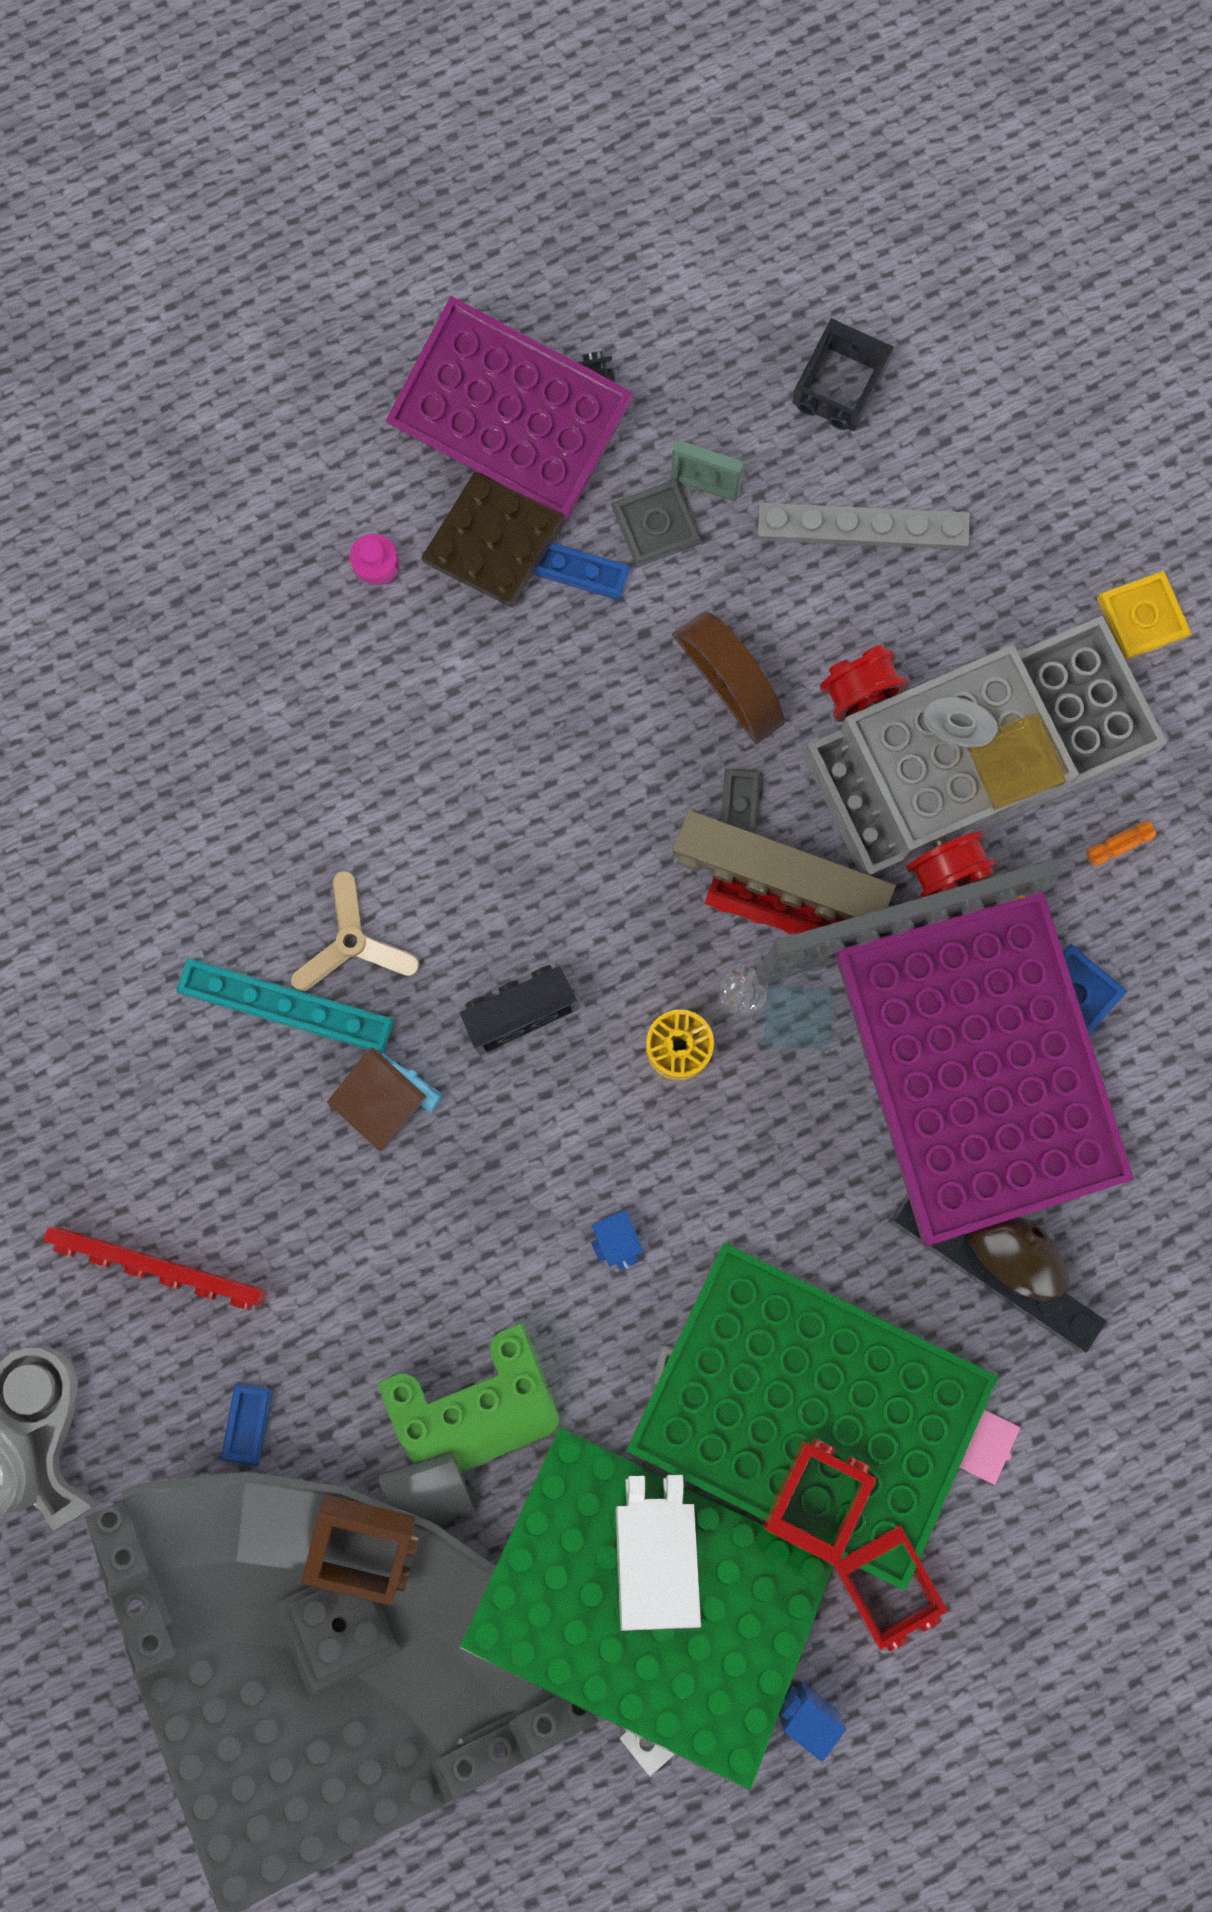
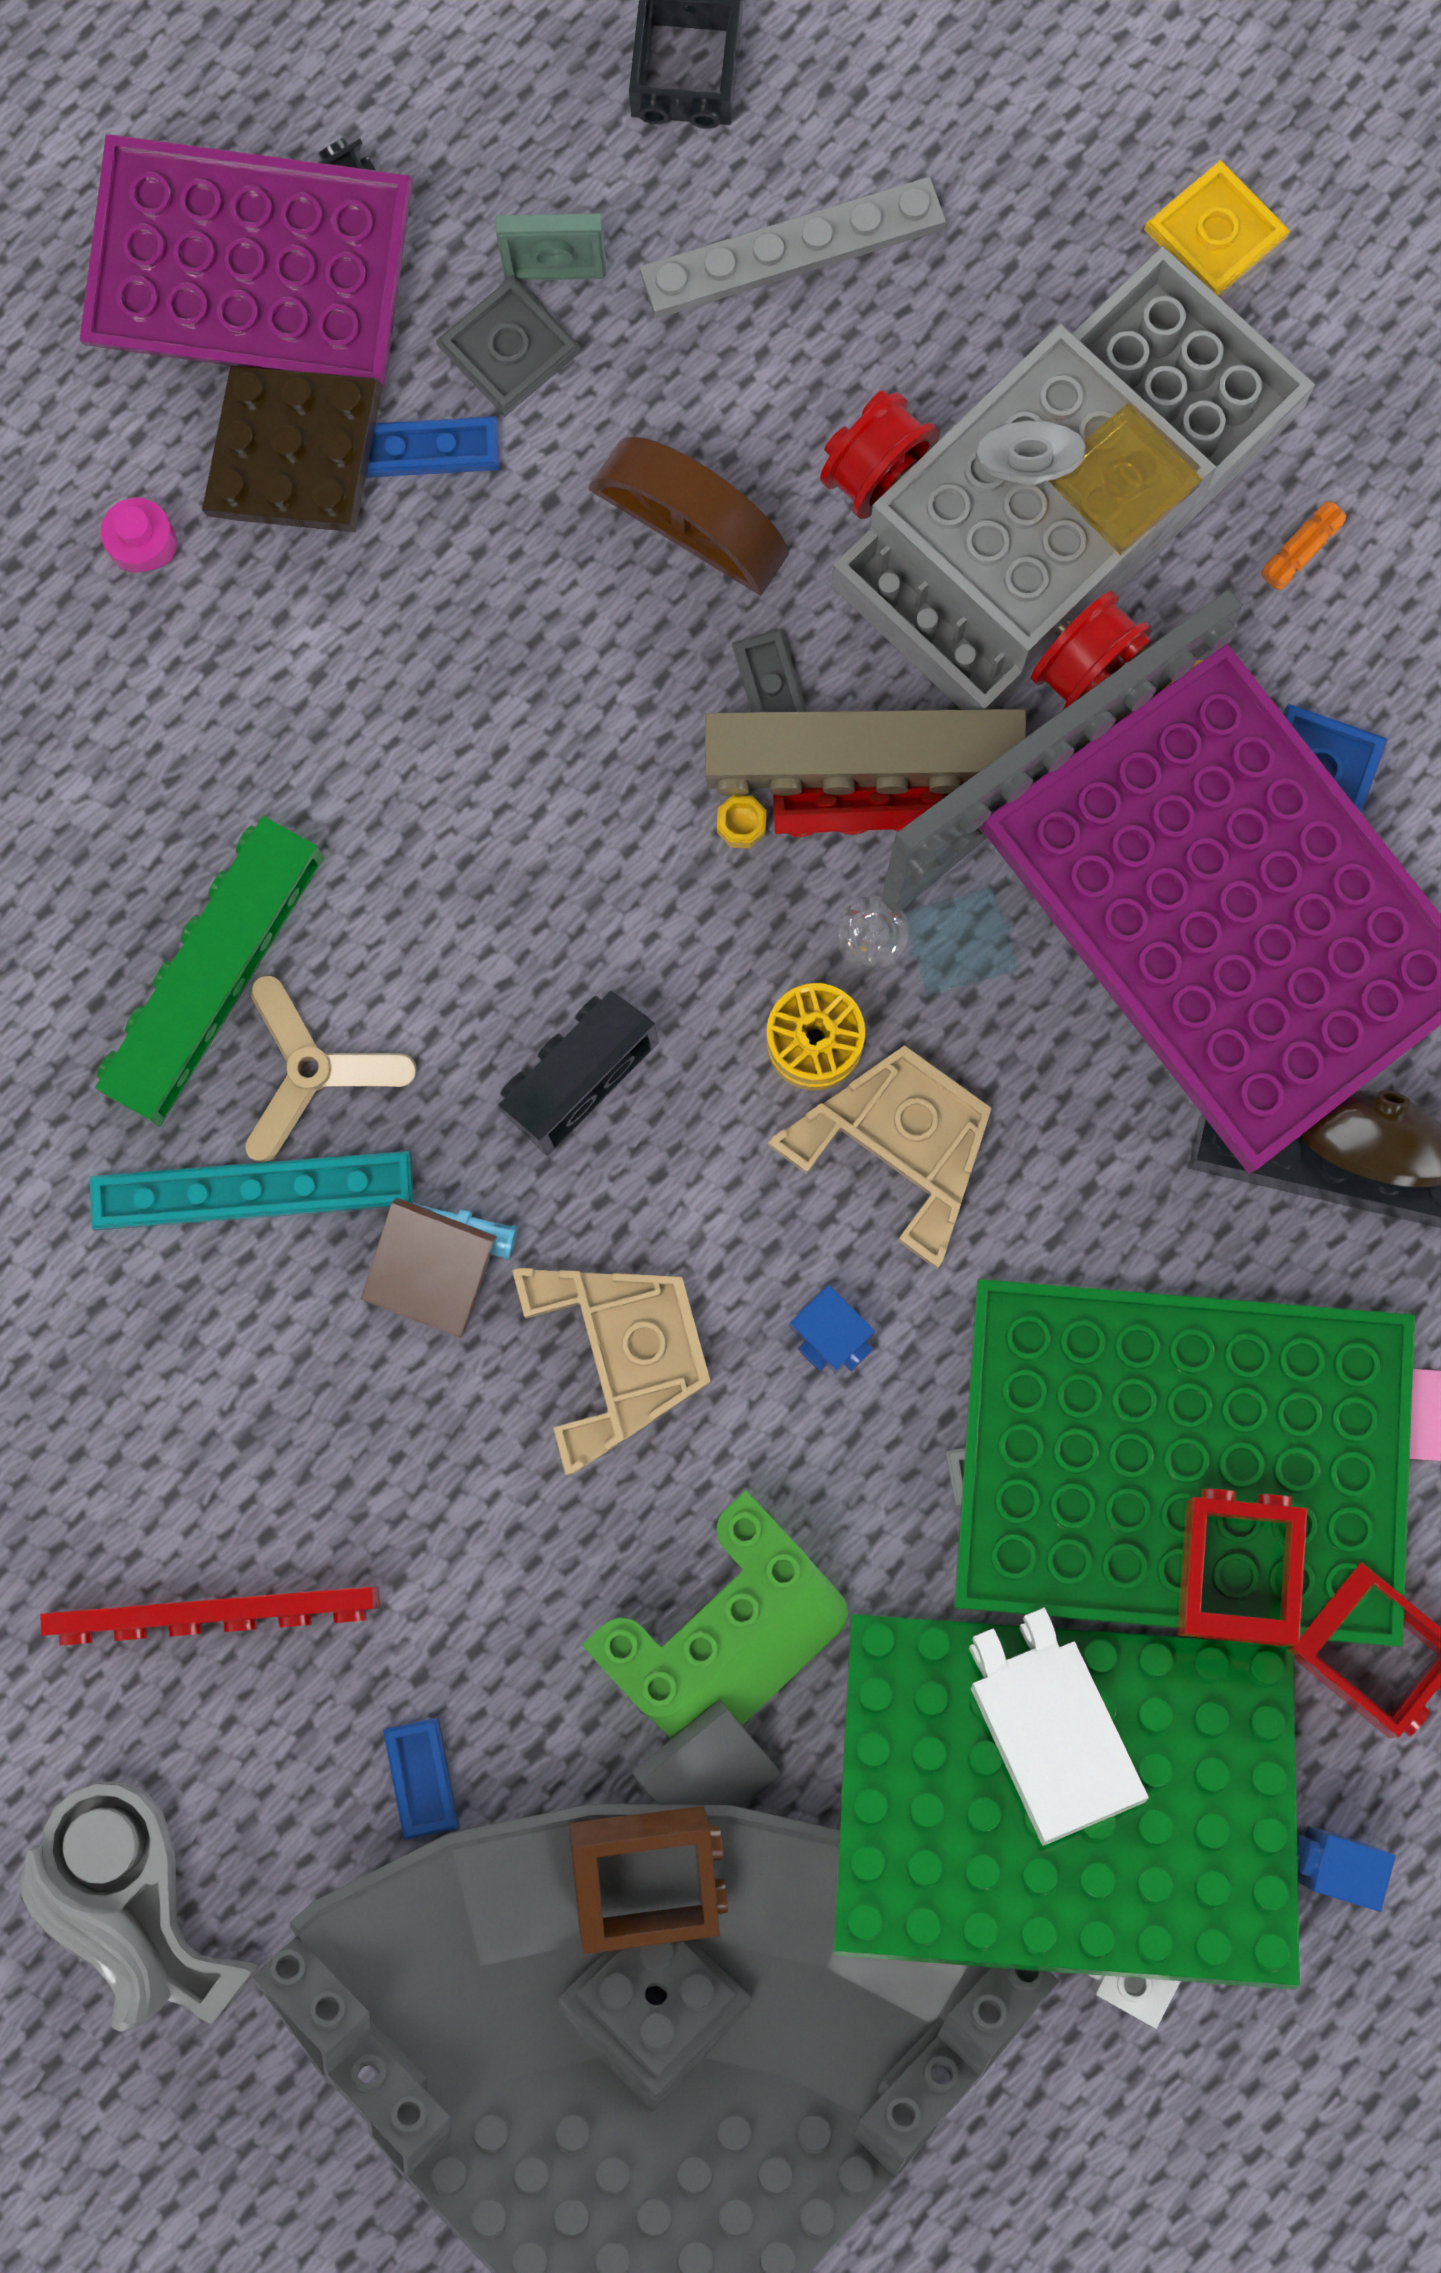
camera: 20 degrees left, 0 degrees up
(311, 856) = (209, 970): none -> green brick
(491, 1202) = (640, 1345): none -> tan wing
(686, 887) = (741, 821): none -> yellow tile
(721, 1125) = (911, 1122): none -> tan wing

